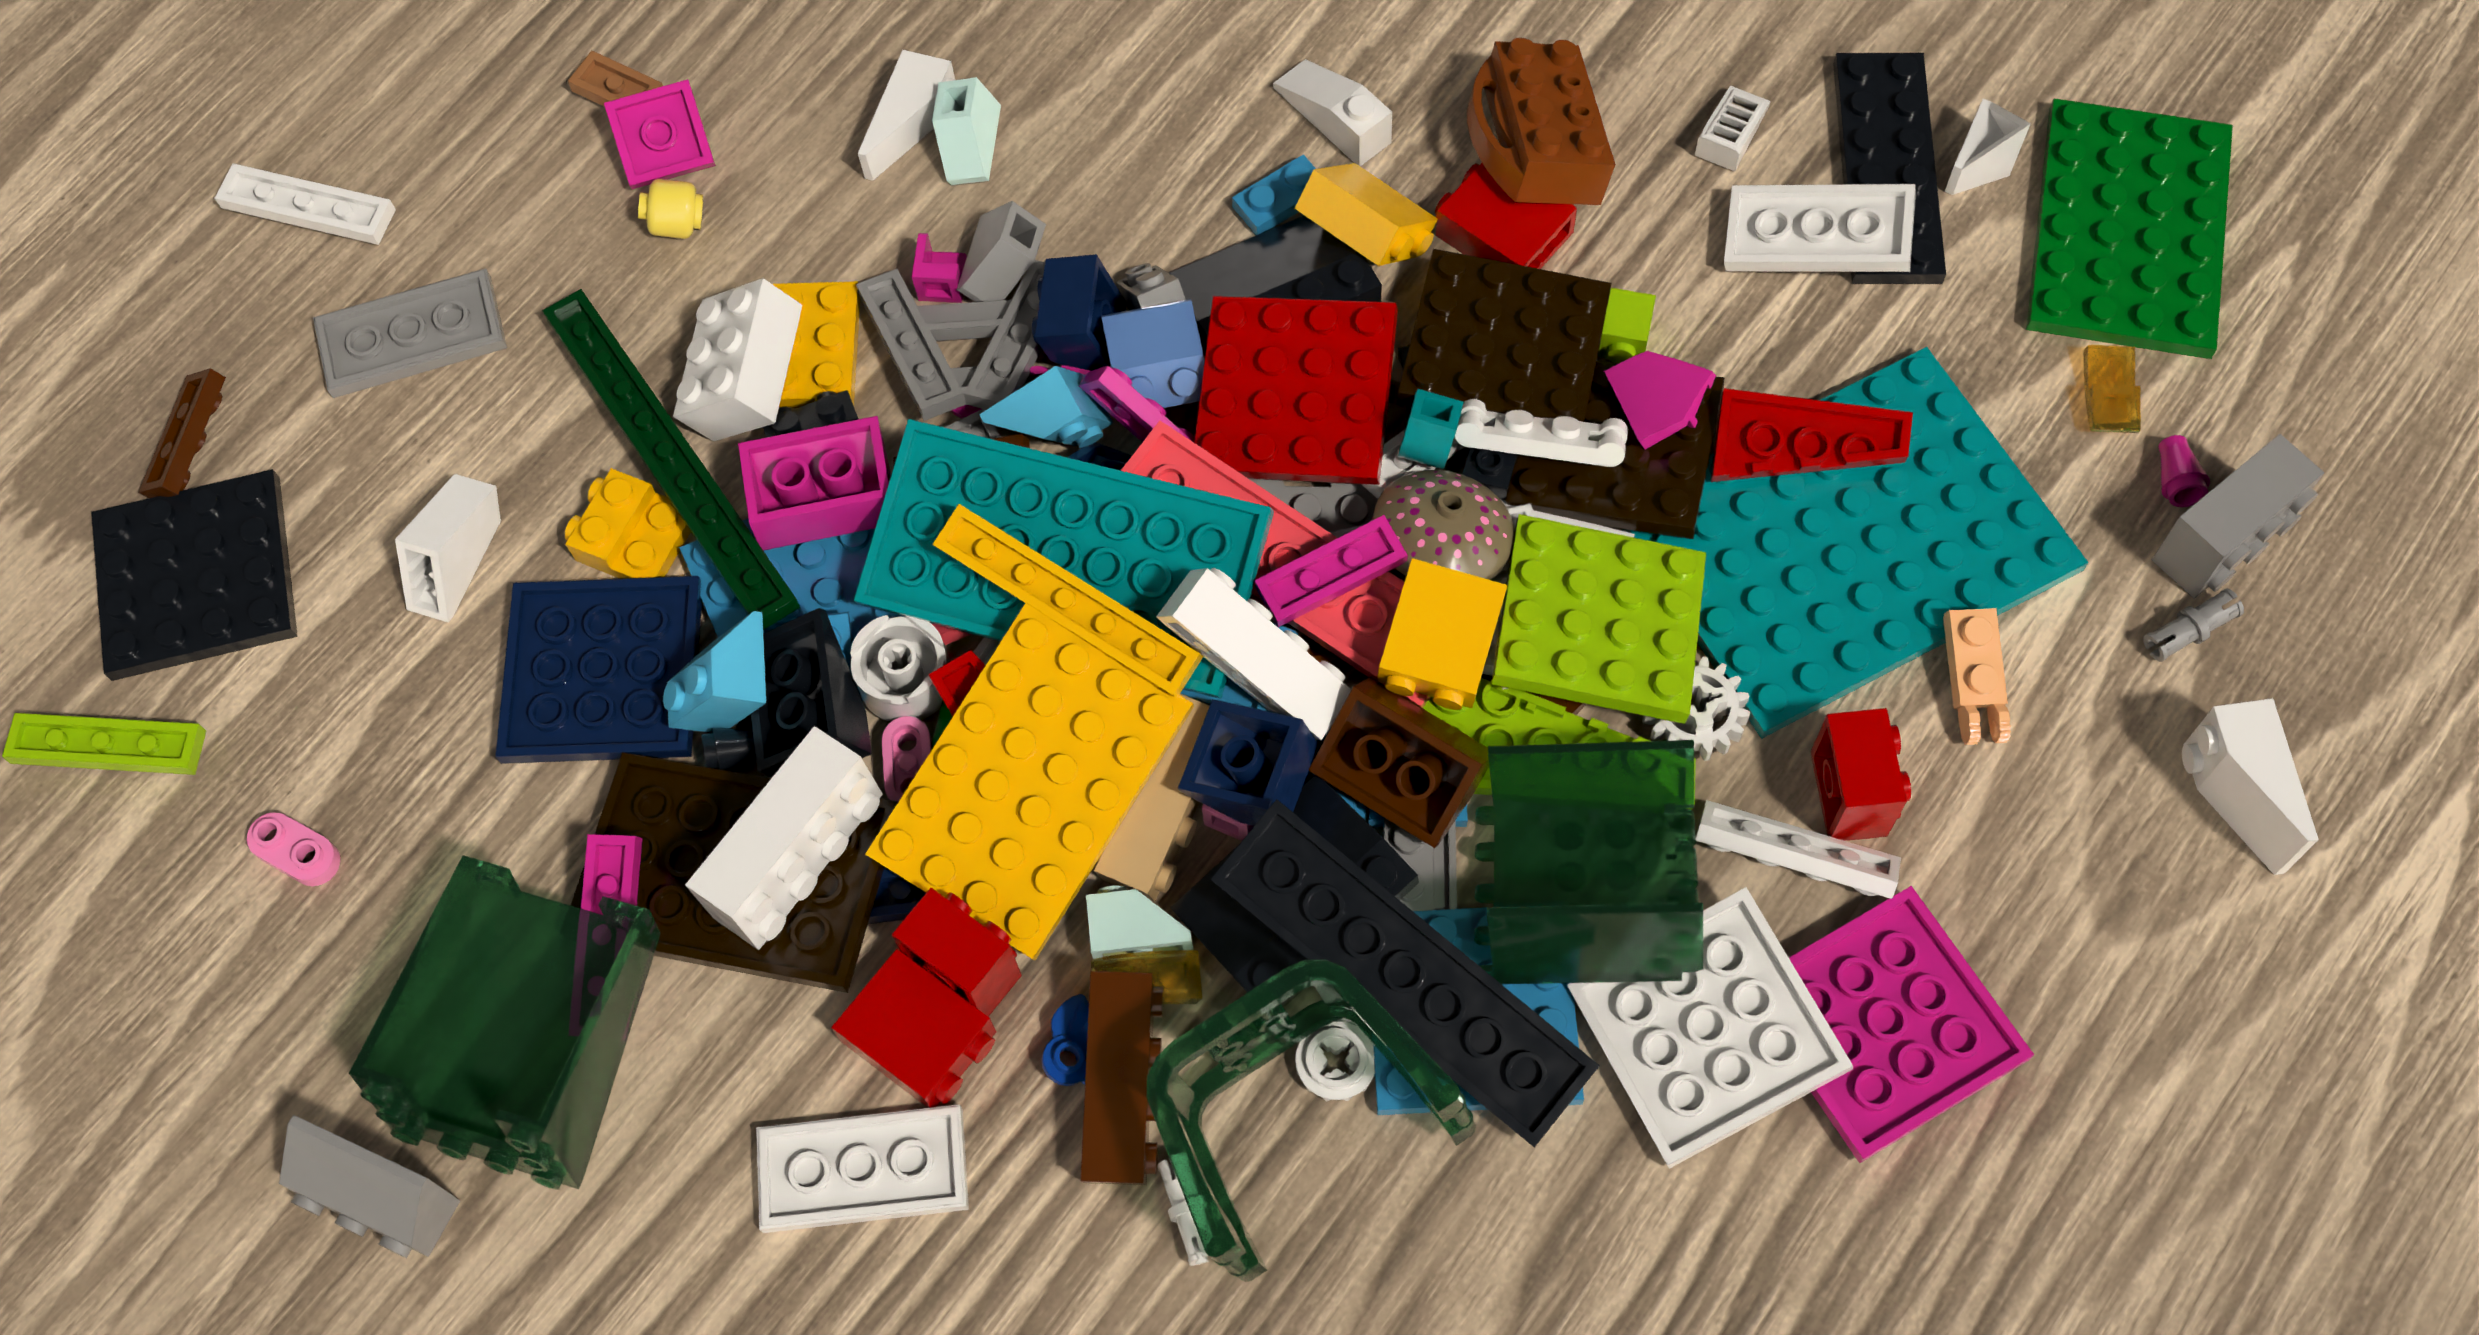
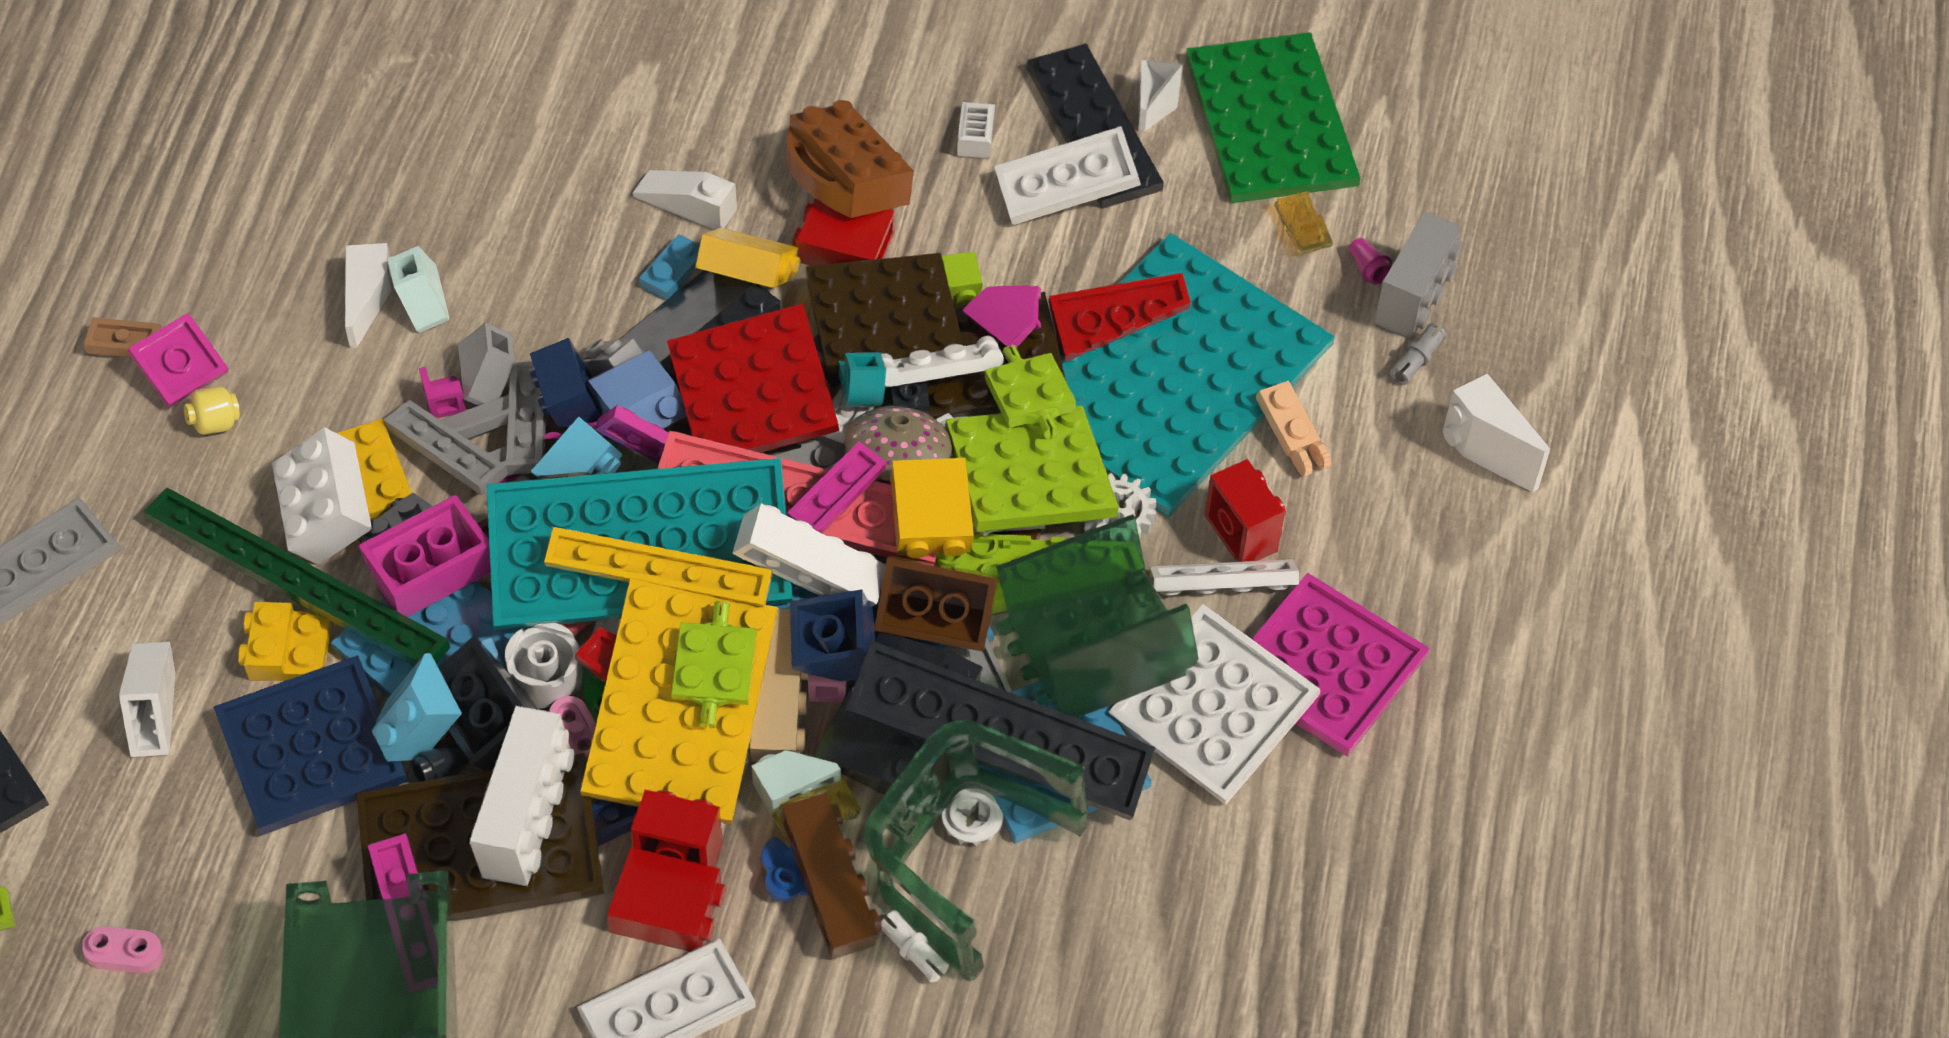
camera: 30 degrees left, 10 degrees down
(1080, 753) = (714, 664): none -> lime plate
(1642, 513) = (1030, 391): none -> lime plate

